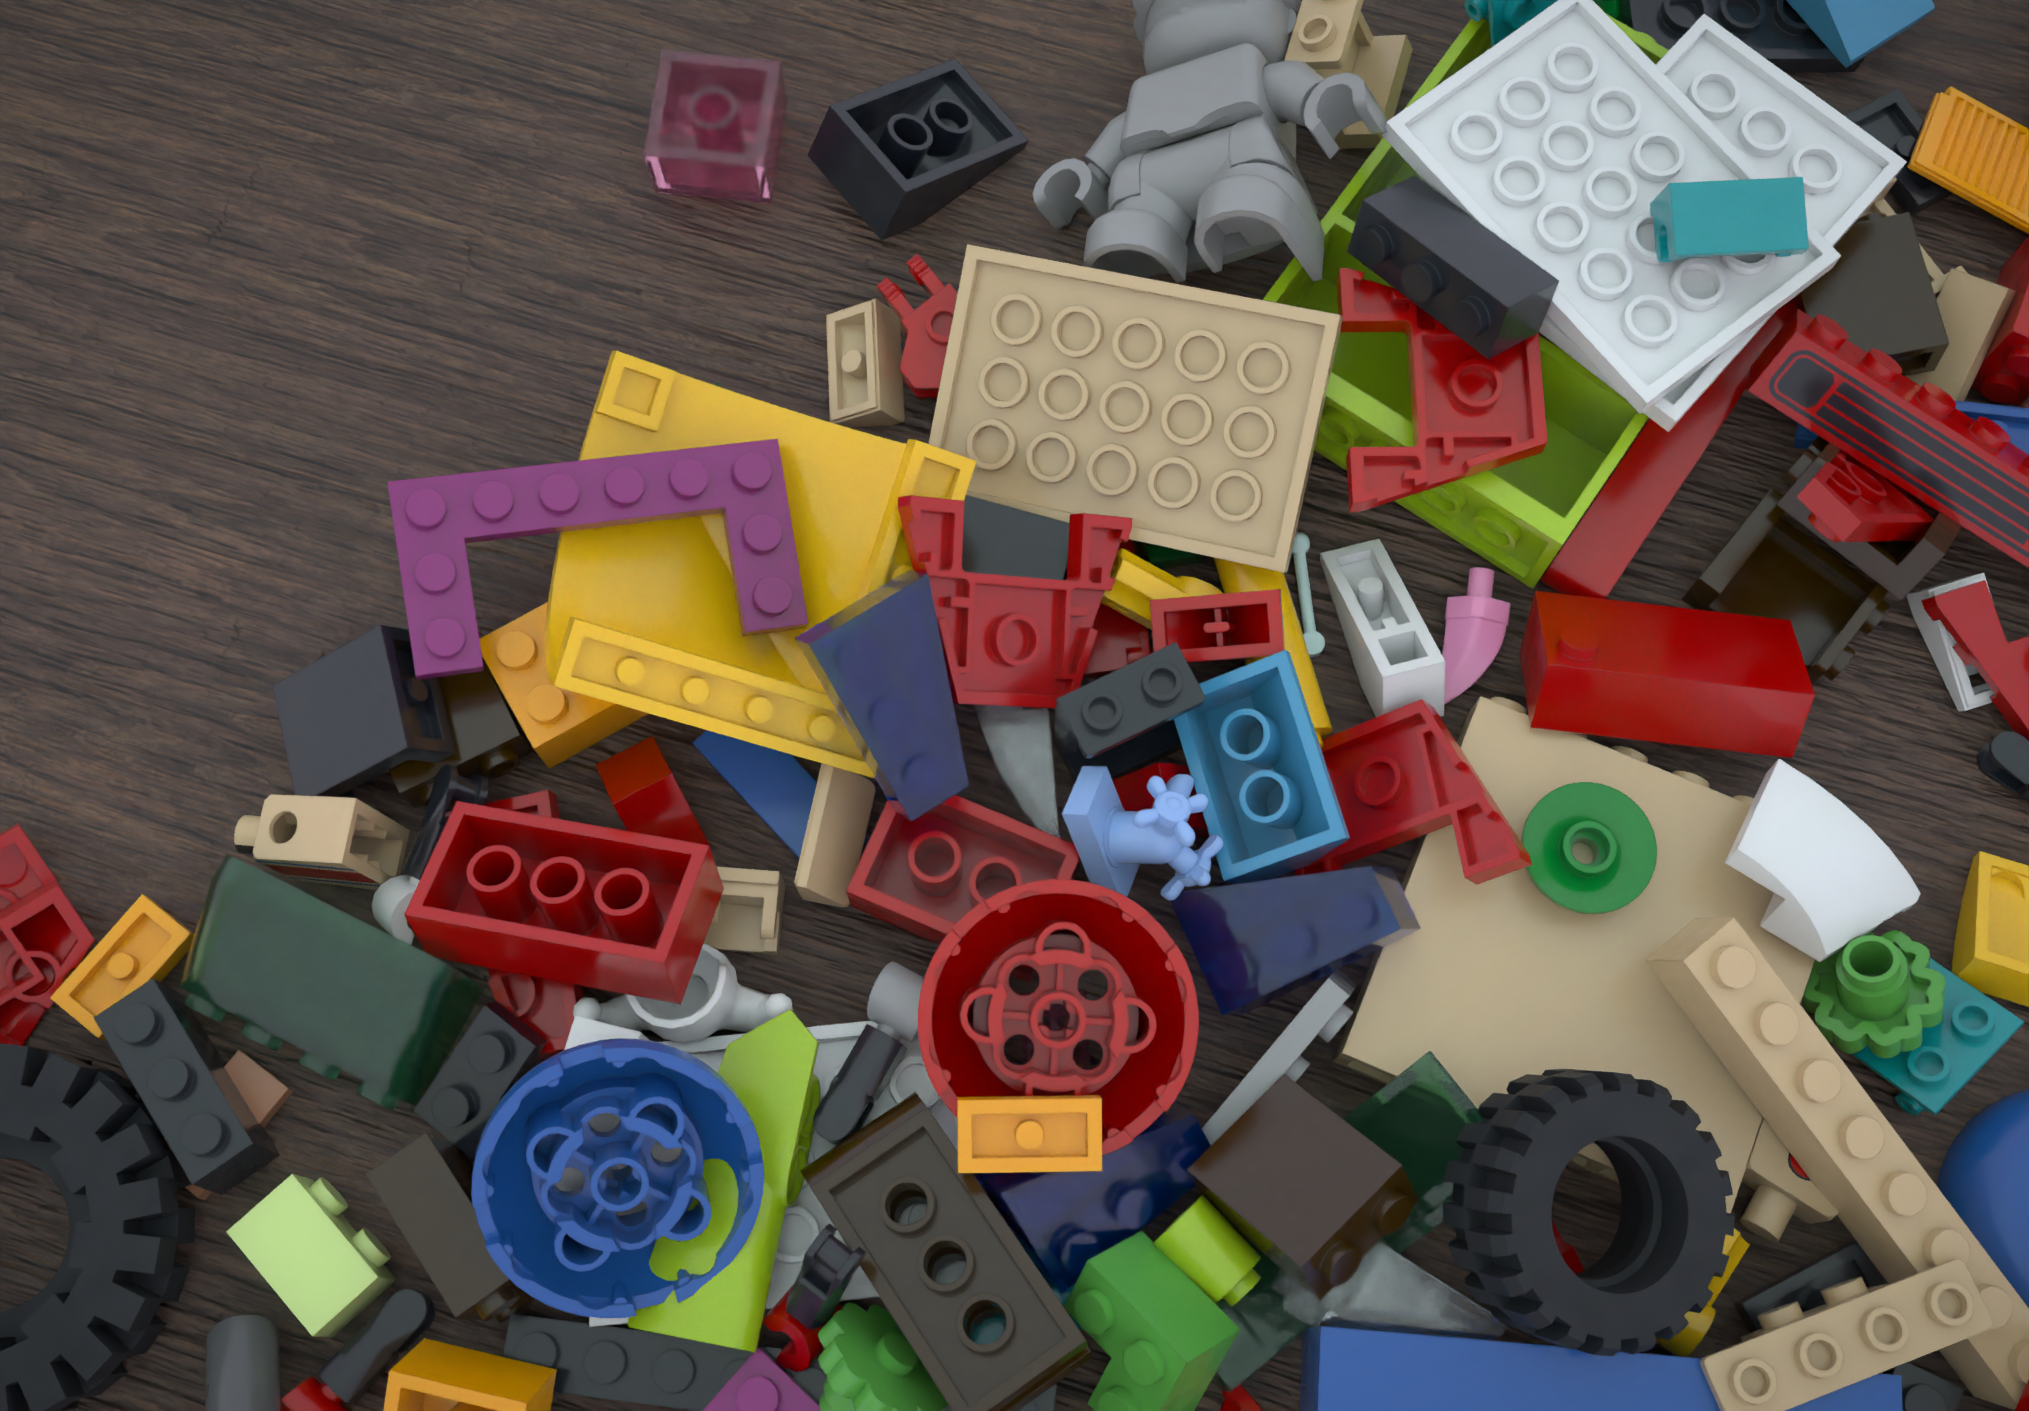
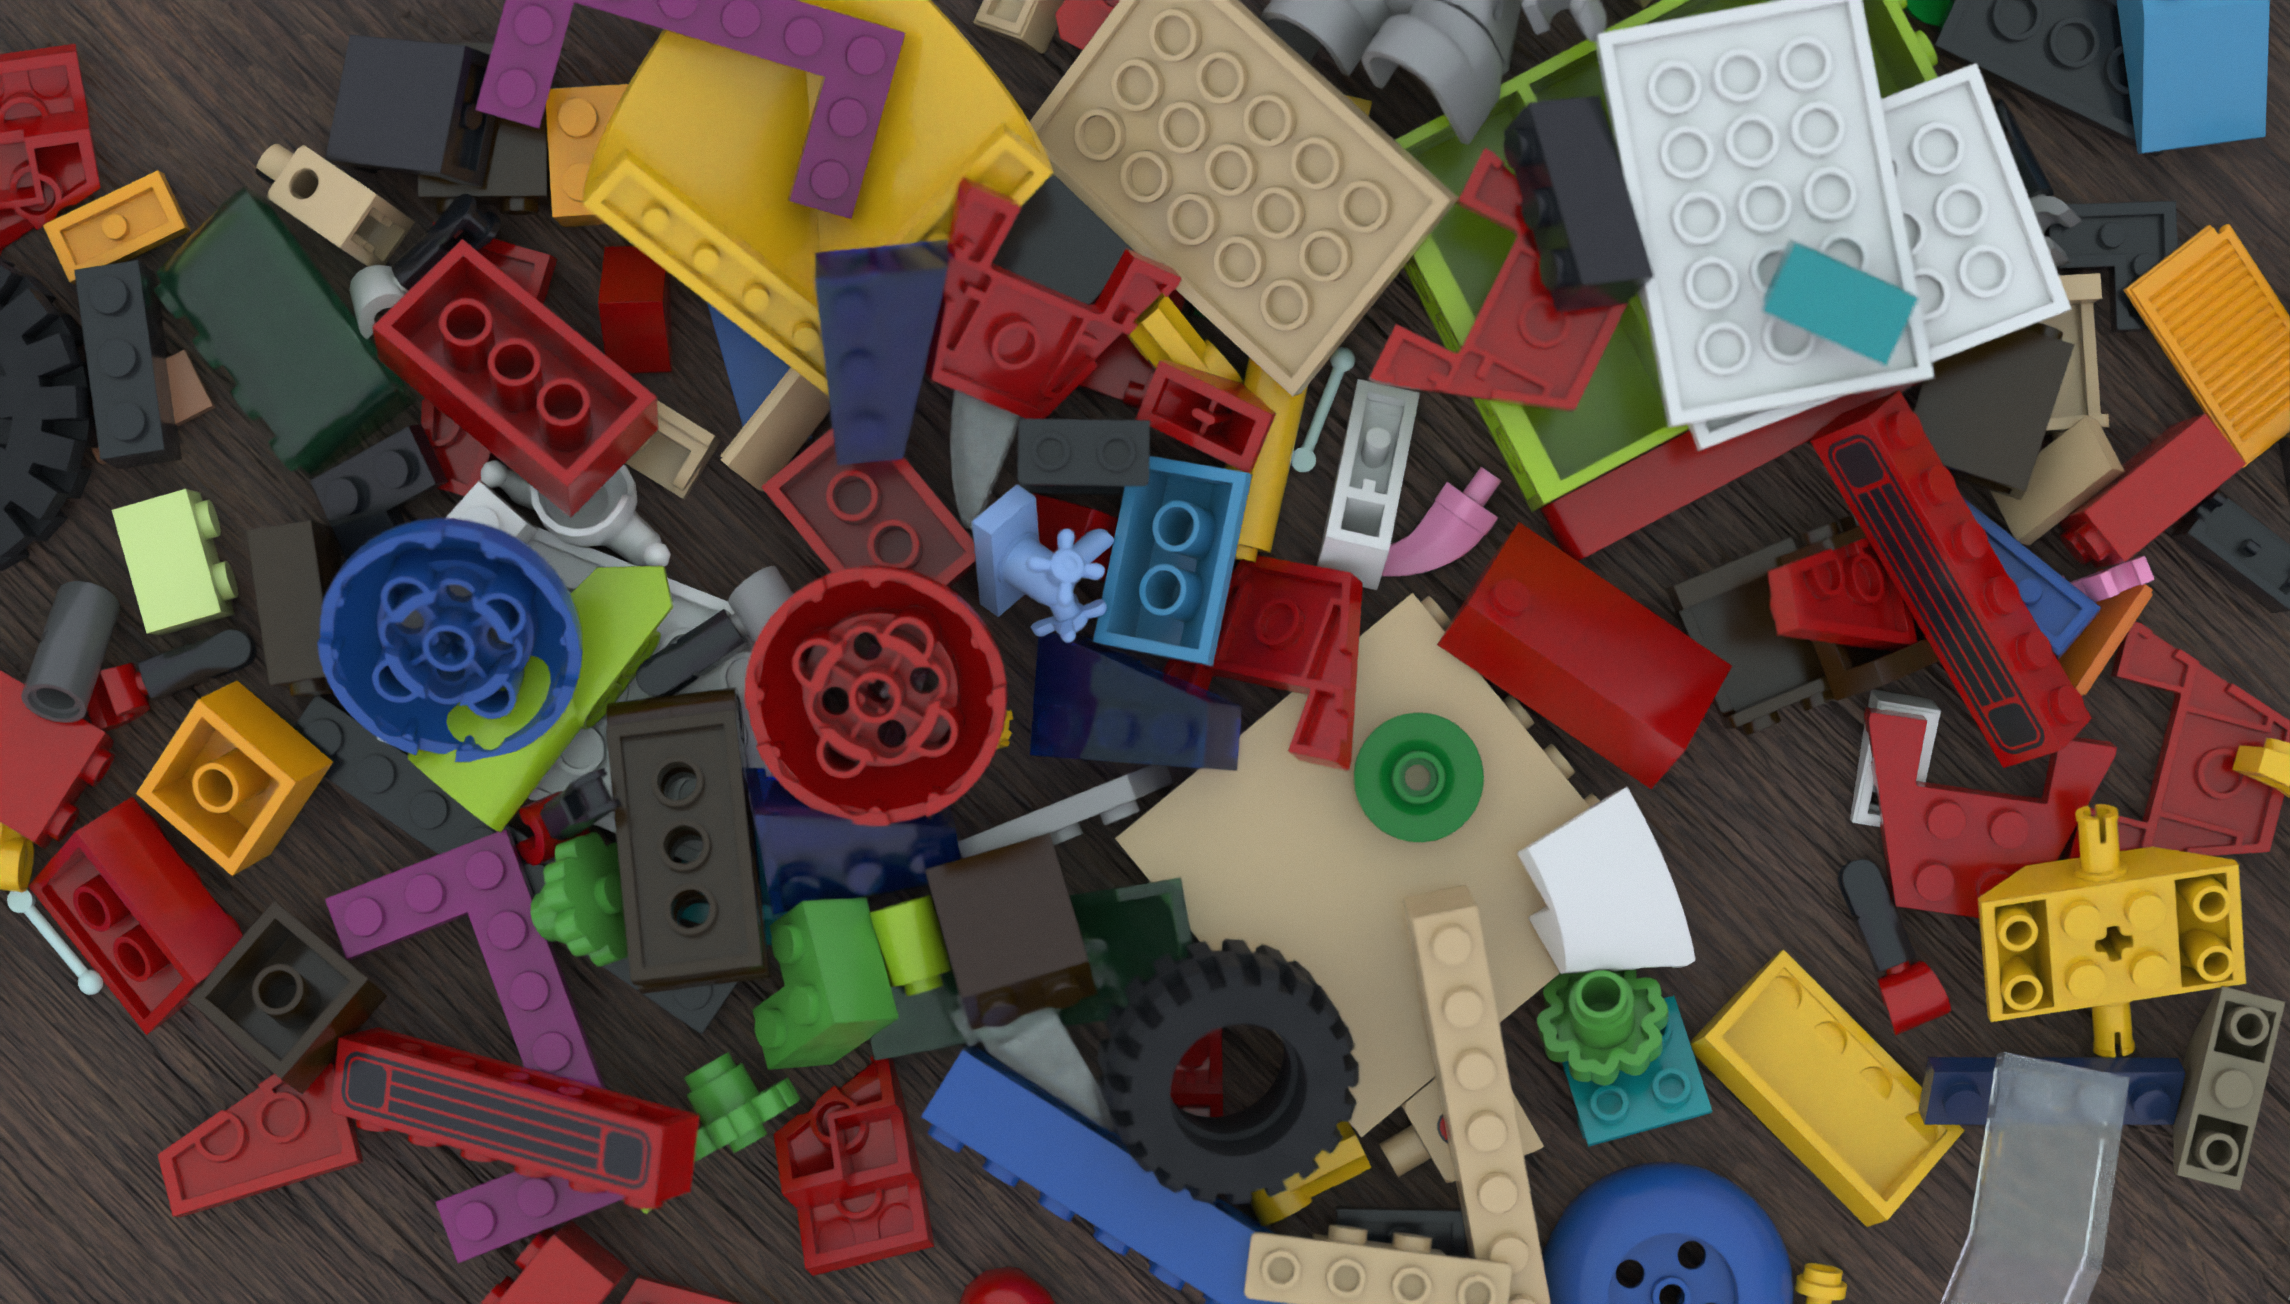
camera: 25 degrees right, 15 degrees up
(1029, 1134) = (801, 778): light orange plate -> none

